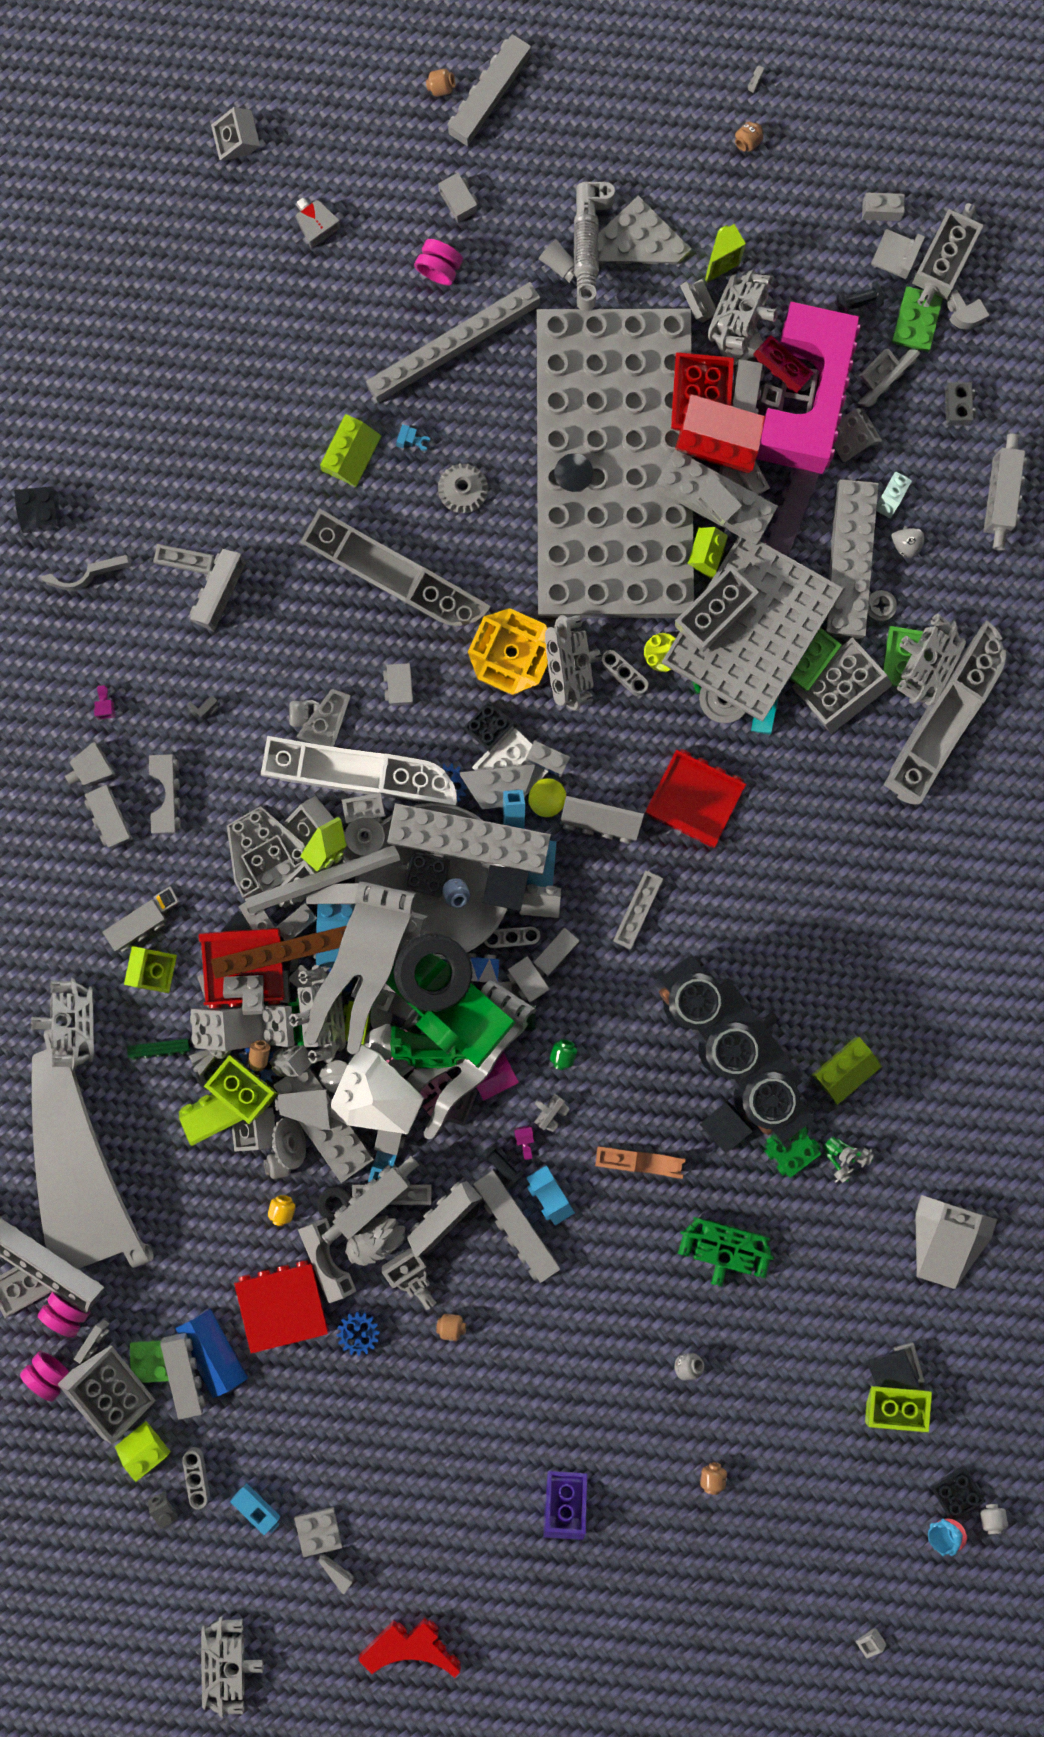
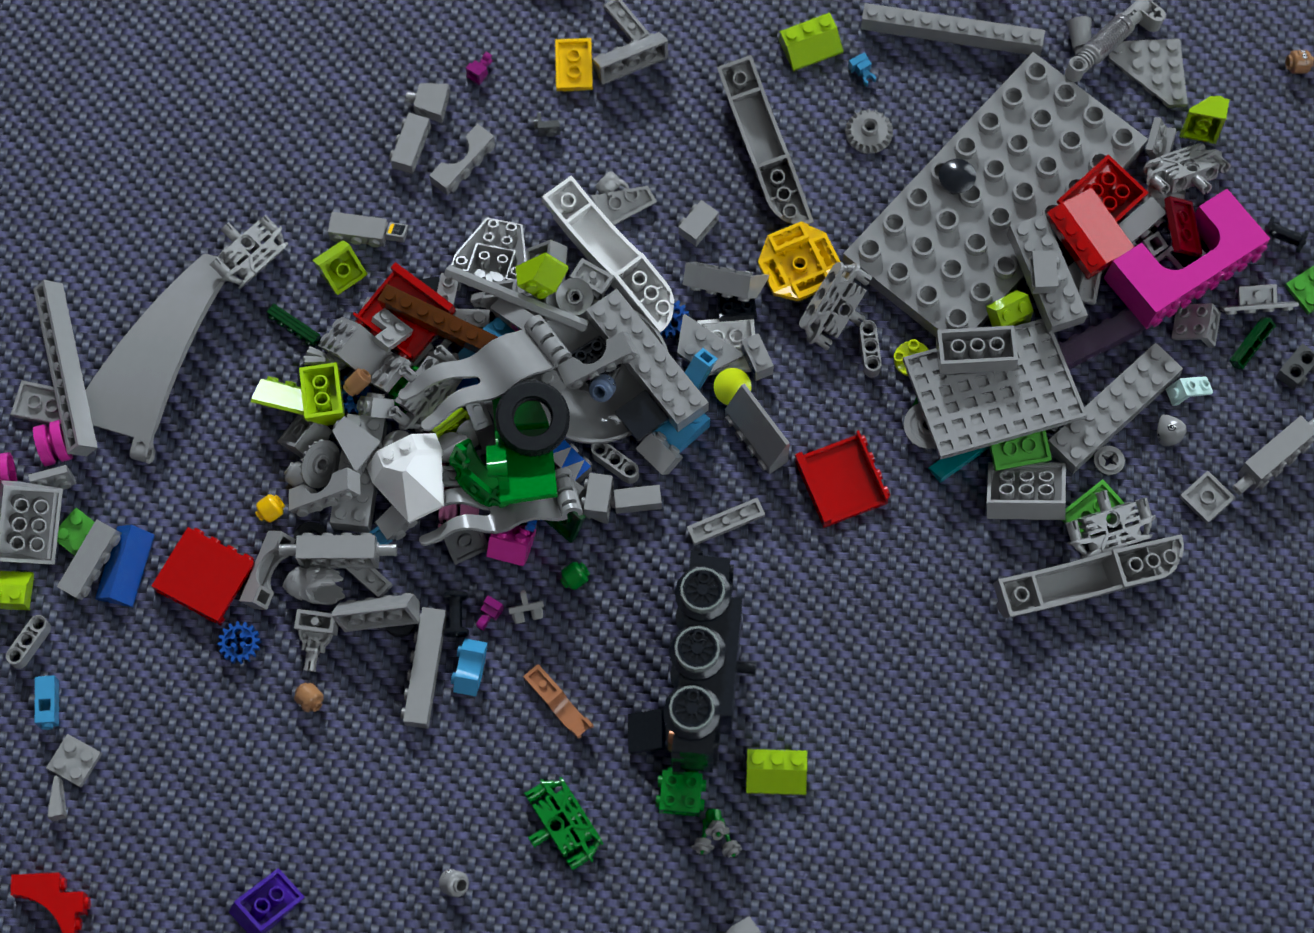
camera: 45 degrees right, 15 degrees down
(177, 635) = (573, 64): none -> yellow plate
(328, 1150) = (341, 487): none -> light grey arch
(445, 855) = (618, 350): none -> light grey arch
(466, 718) = (723, 280): none -> light grey wedge
(908, 413) = (1252, 343): none -> dark green piece
(978, 571) = (1207, 497): none -> light grey plate

